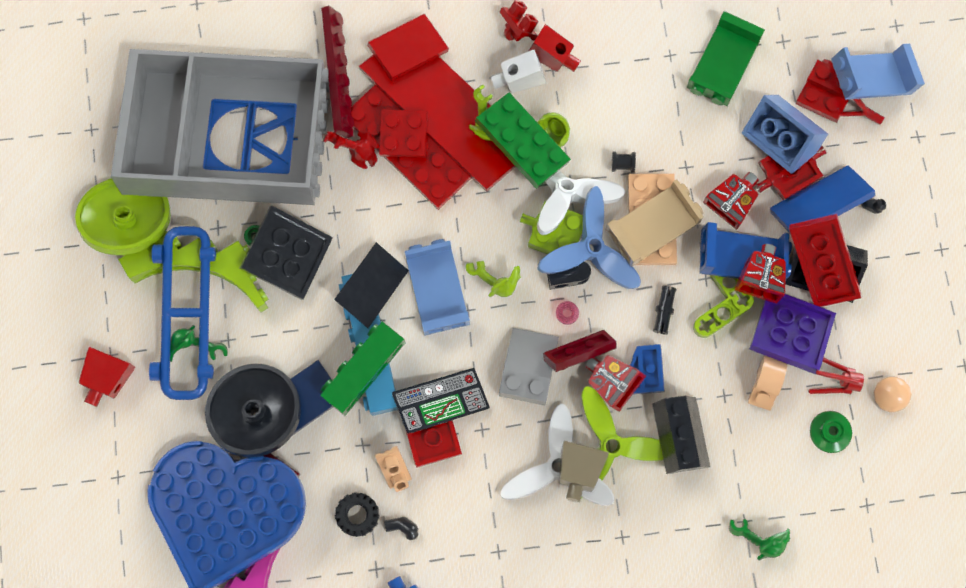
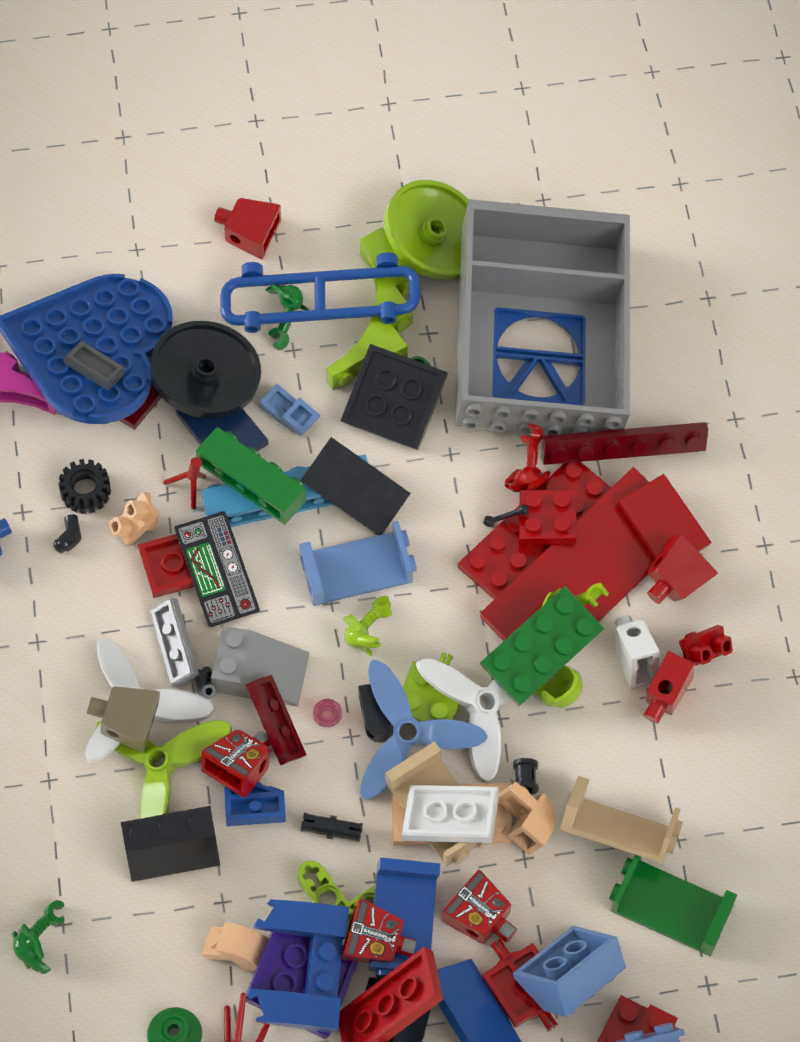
camera: 85 degrees right, 15 degrees down
(249, 504) = (94, 365): none -> dark grey tile
(289, 343) = (288, 411): none -> medium blue slope
(356, 420) = (192, 474): none -> red plant
(401, 149) = (489, 520): none -> black hinge
(453, 37) = (678, 571): none -> red torso
(505, 435) = (174, 642): none -> light grey tile
(545, 411) = (202, 683): none -> black arm
(663, 156) = (534, 817): none -> light nougat brick
(666, 213) = (450, 814): none -> white tile
(668, 91) = (618, 827): none -> tan panel
(820, 317) = (319, 1005): none -> blue wedge

